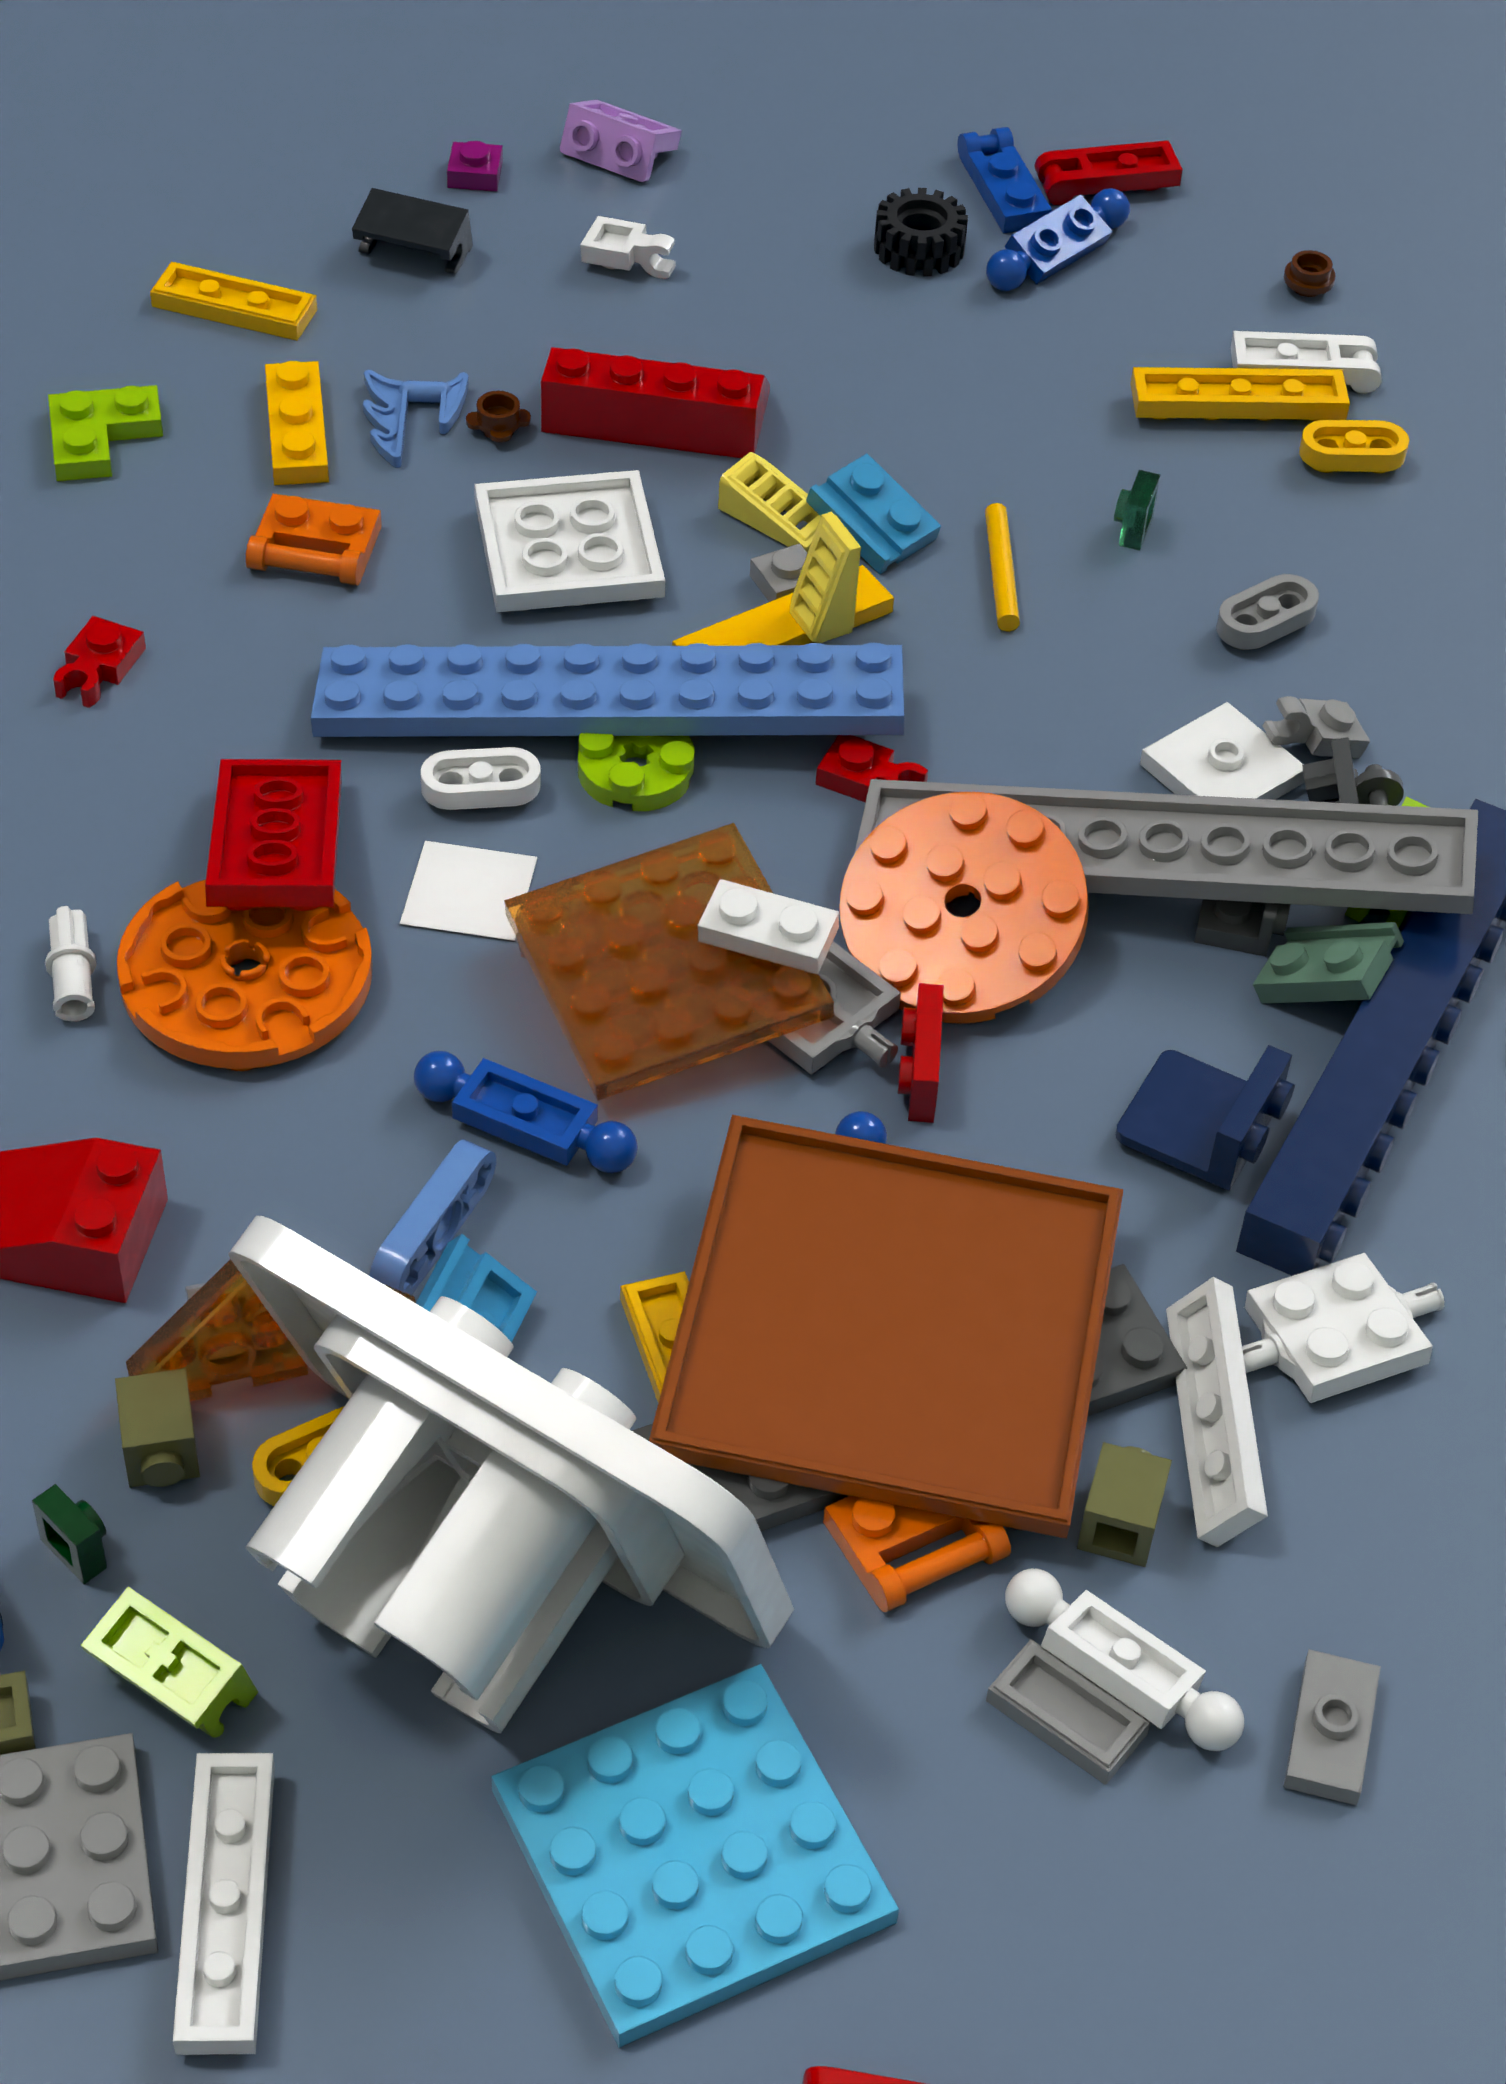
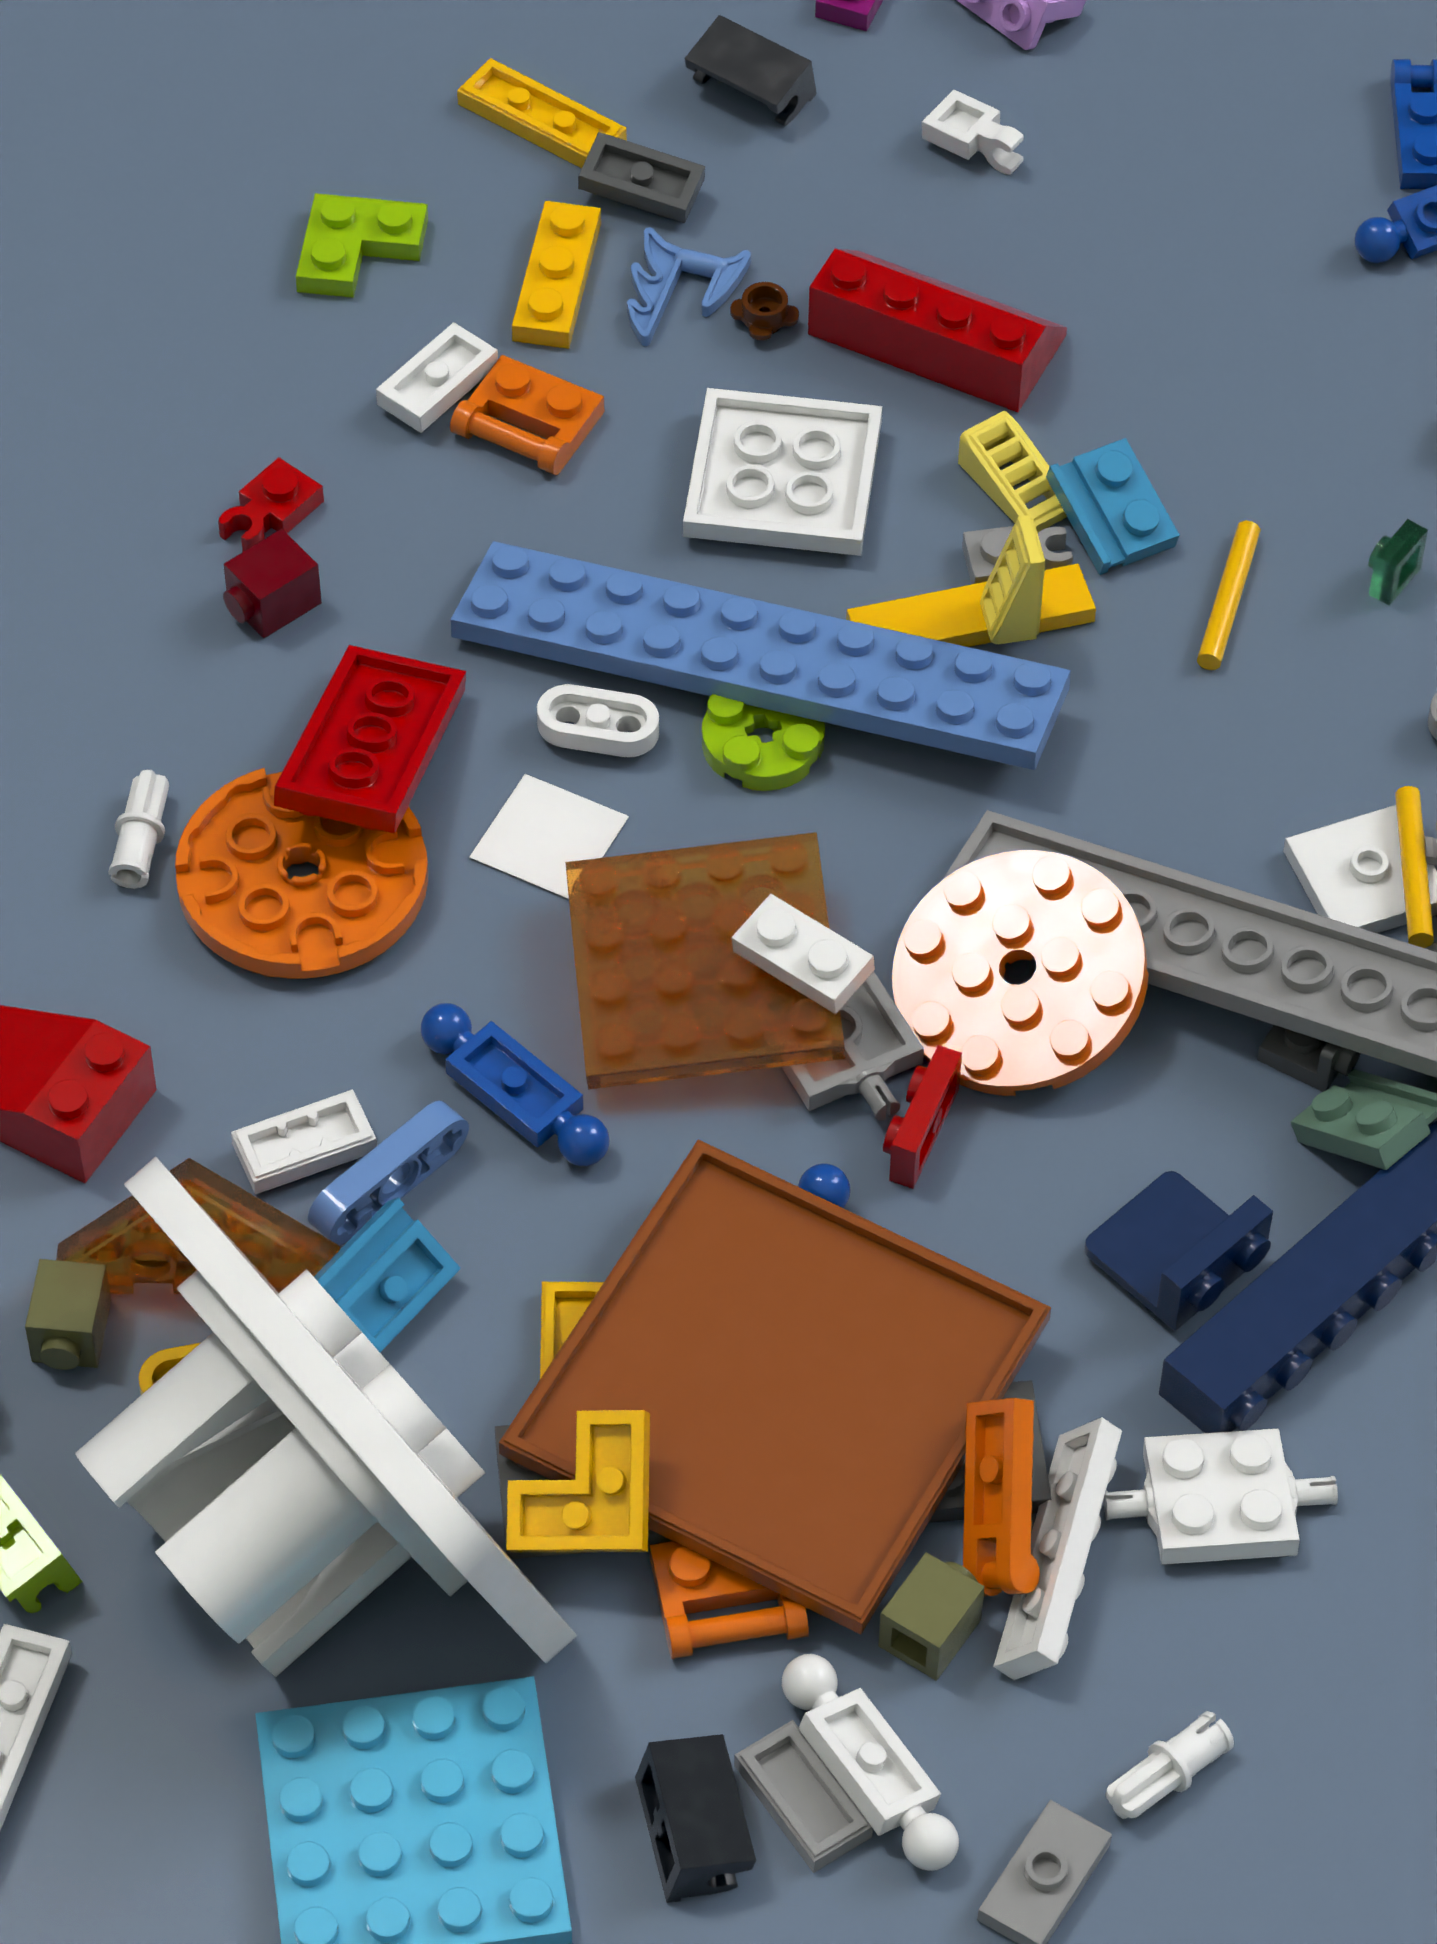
camera: 20 degrees right, 5 degrees up
(126, 722) = (271, 584): none -> dark red brick
(218, 523) = (436, 377): none -> white plate
(345, 1204) = (303, 1141): none -> white plate
(346, 330) = (641, 177): none -> dark grey plate
(784, 1465) = (603, 1505): none -> yellow plate
(855, 761) = (993, 787): red plate -> none
(920, 232) = (1301, 151): black tyre -> none
(975, 1760) = (694, 1816): none -> black hinge
(1150, 1368) = (999, 1496): none -> orange plate
(1266, 743) = (1414, 867): none -> yellow bar
(1405, 1587) = (1170, 1766): none -> white axle

